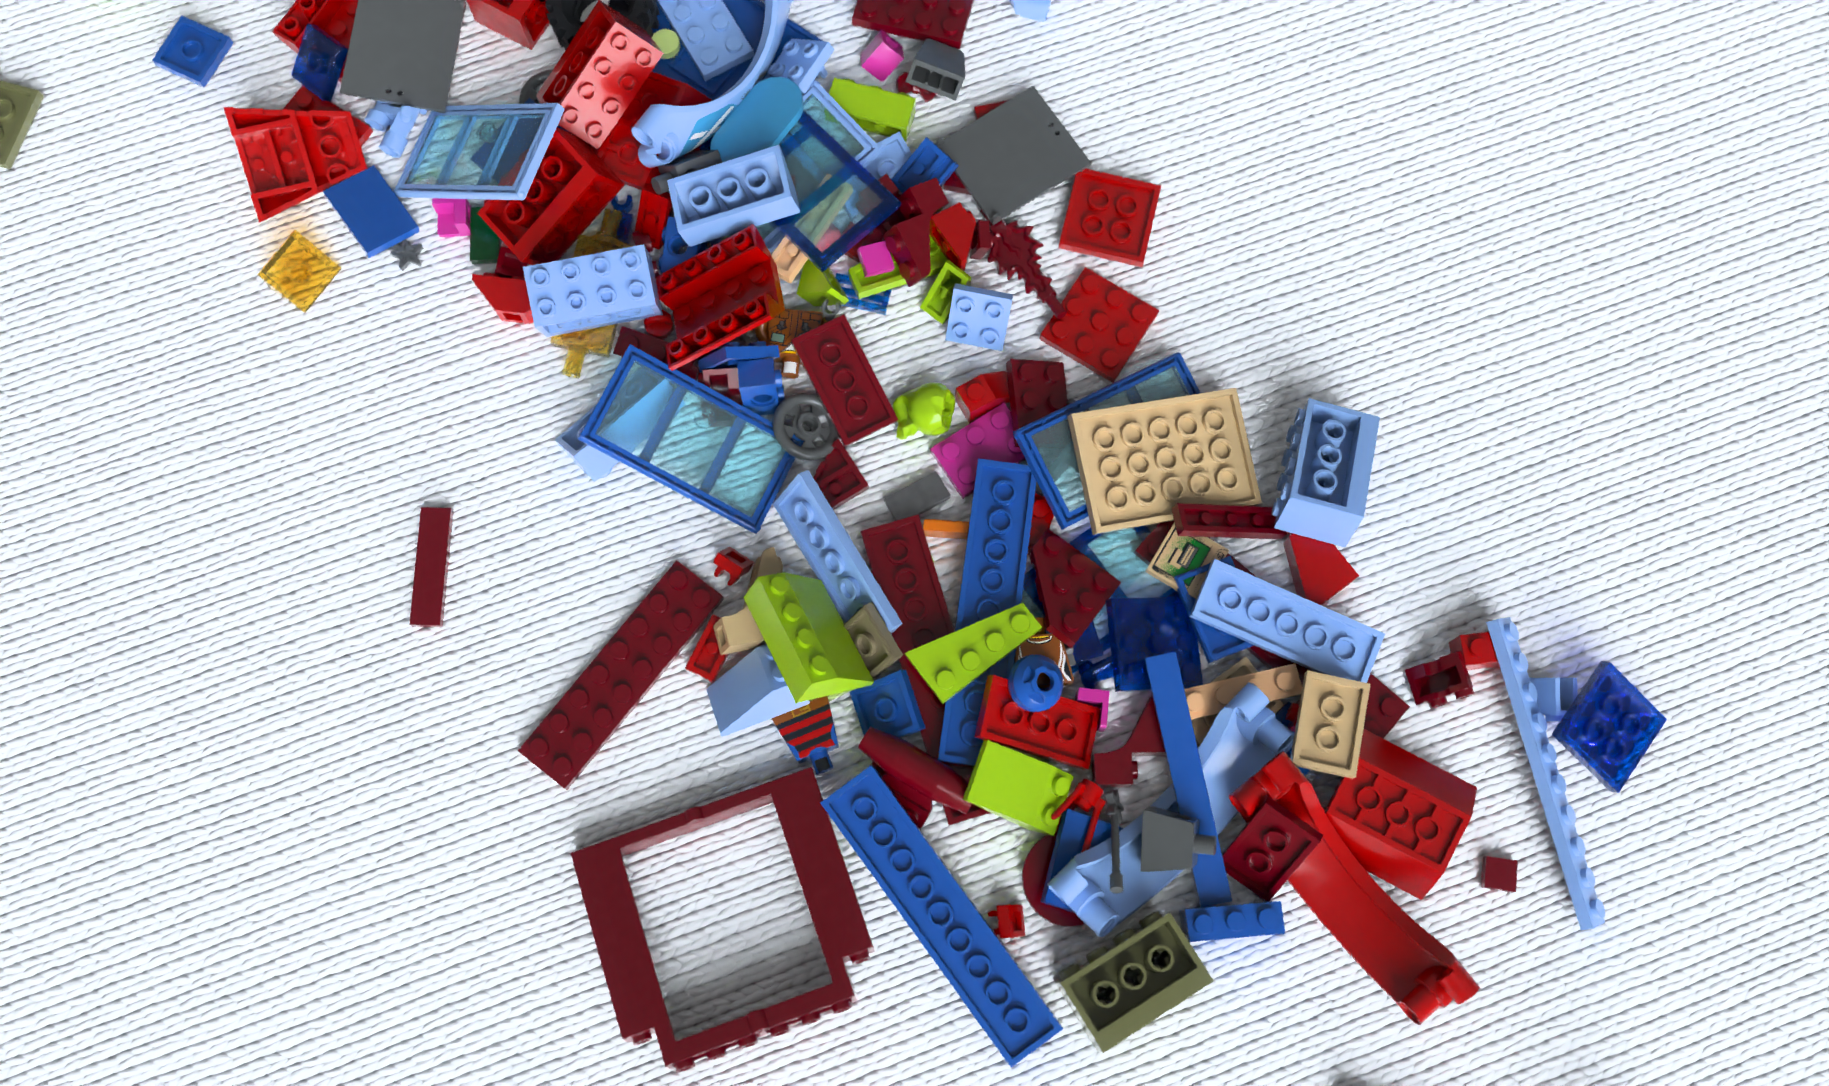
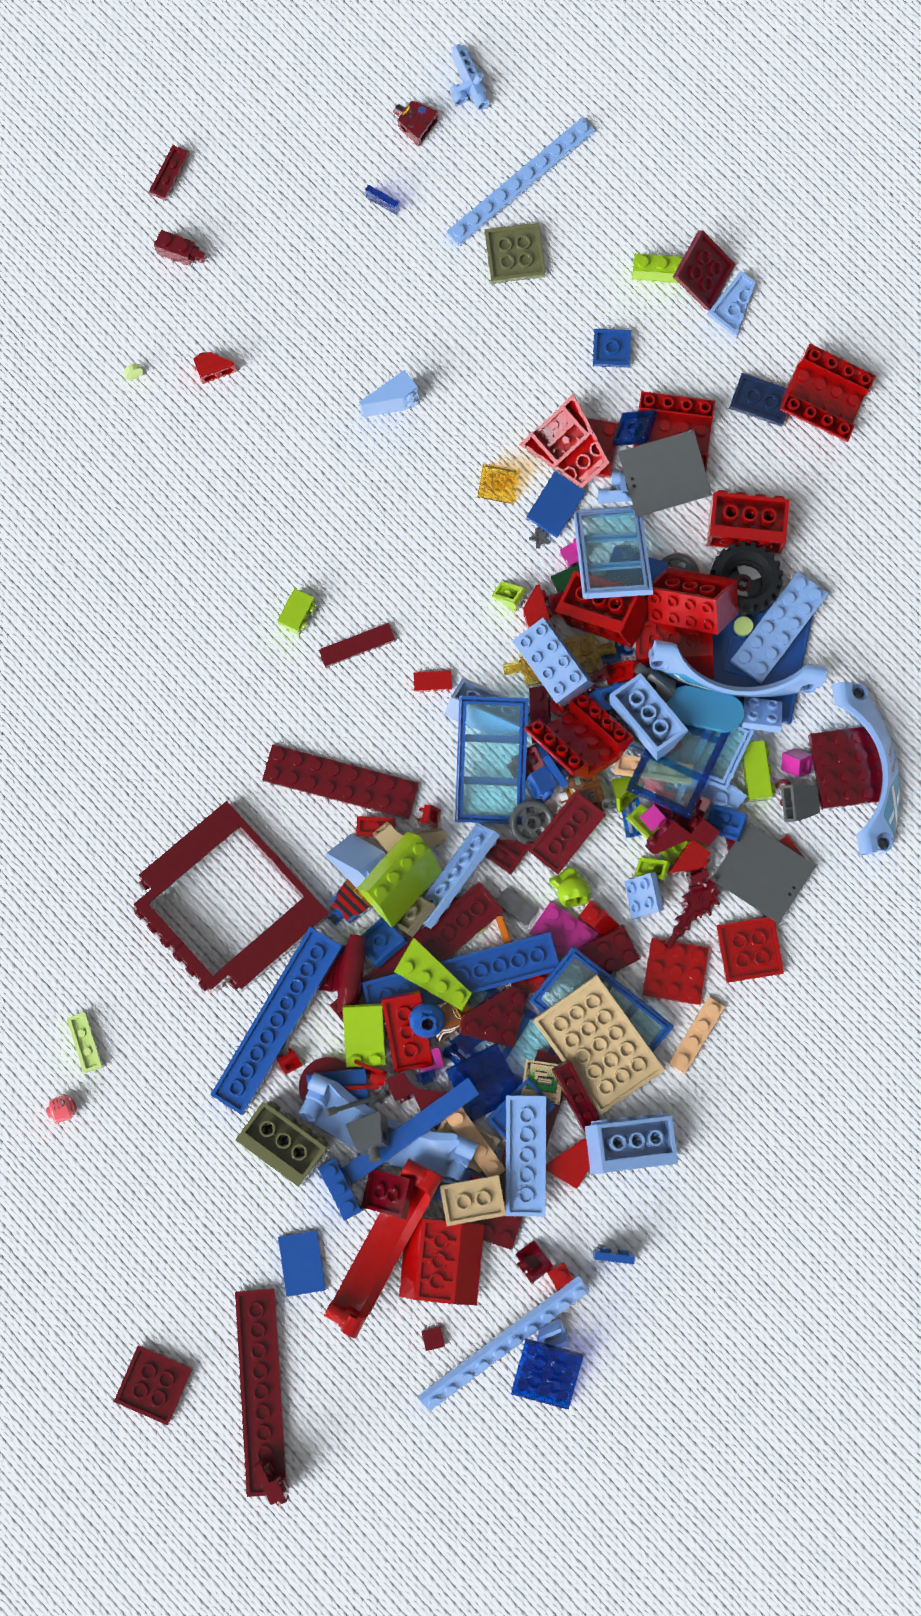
camera: 75 degrees right, 5 degrees up
(91, 363) = (391, 397): none -> light blue slope
(336, 631) = (297, 611): none -> lime brick
(467, 324) = (509, 595): none -> lime slope
(538, 481) = (432, 681): none -> red tile
(1115, 725) = (426, 1077): none -> clear blue plate
(1198, 333) = (696, 1035): none -> light nougat plate
(1320, 1028) = (301, 1263): none -> blue tile
(1476, 558) = (622, 1256): none -> blue plate

